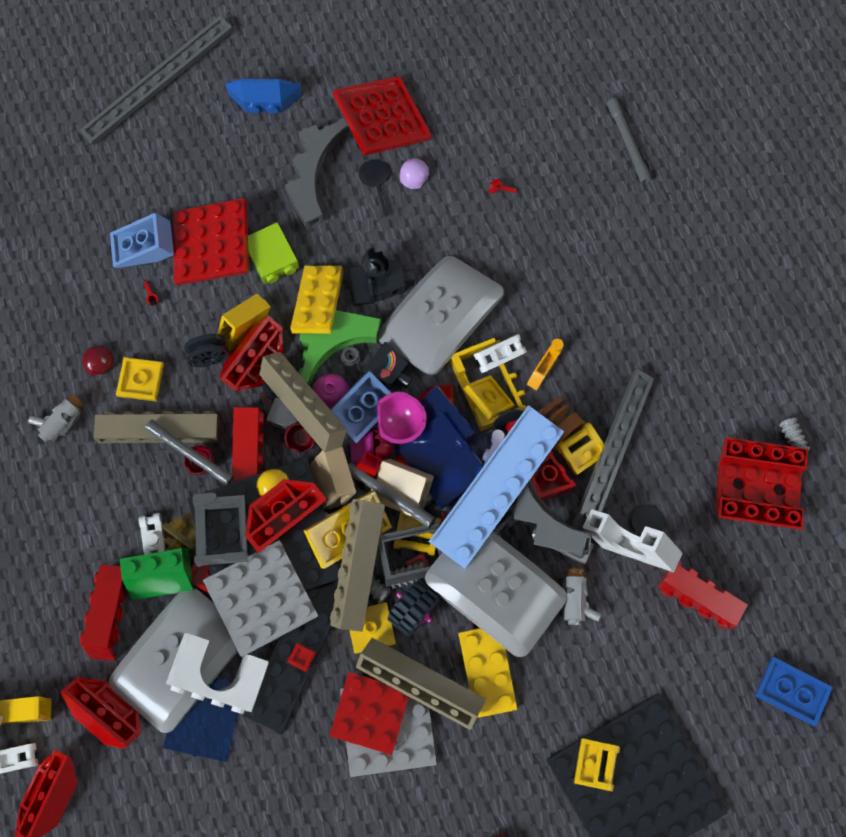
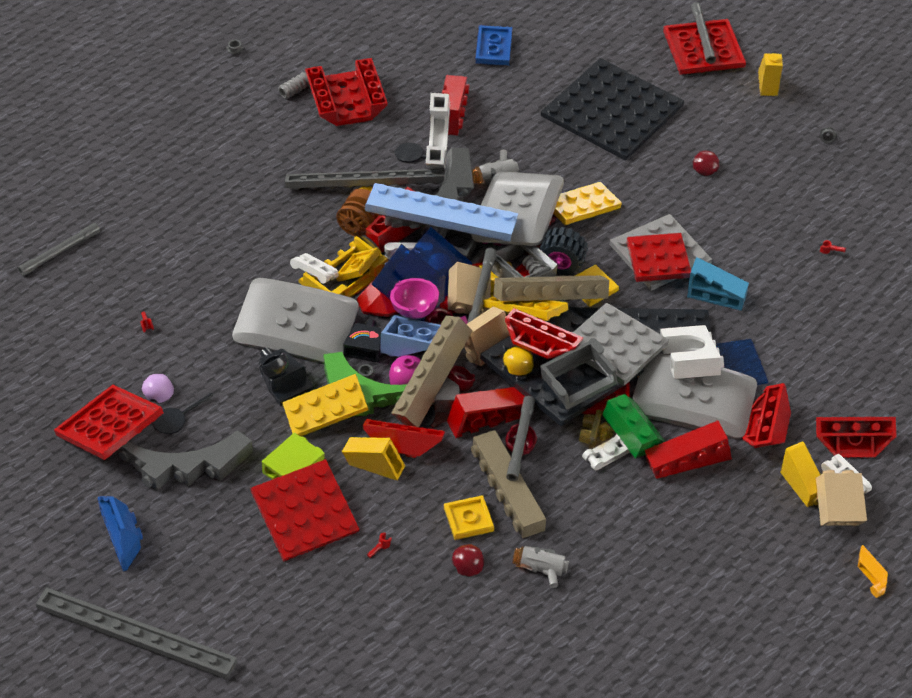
camera: 115 degrees left, 25 degrees down
(142, 242) = (330, 570): medium blue slope -> none
(206, 350) = (417, 466): black wheel -> none
(301, 657) = (643, 311): red tile -> none
(301, 758) = (716, 286): none -> dark azure wedge
(369, 463) = (462, 311): red tile -> none
(421, 683) = (618, 230): dark tan brick -> none
(545, 364) = (306, 242): light orange piece -> none
(589, 764) = (613, 124): yellow plate -> none

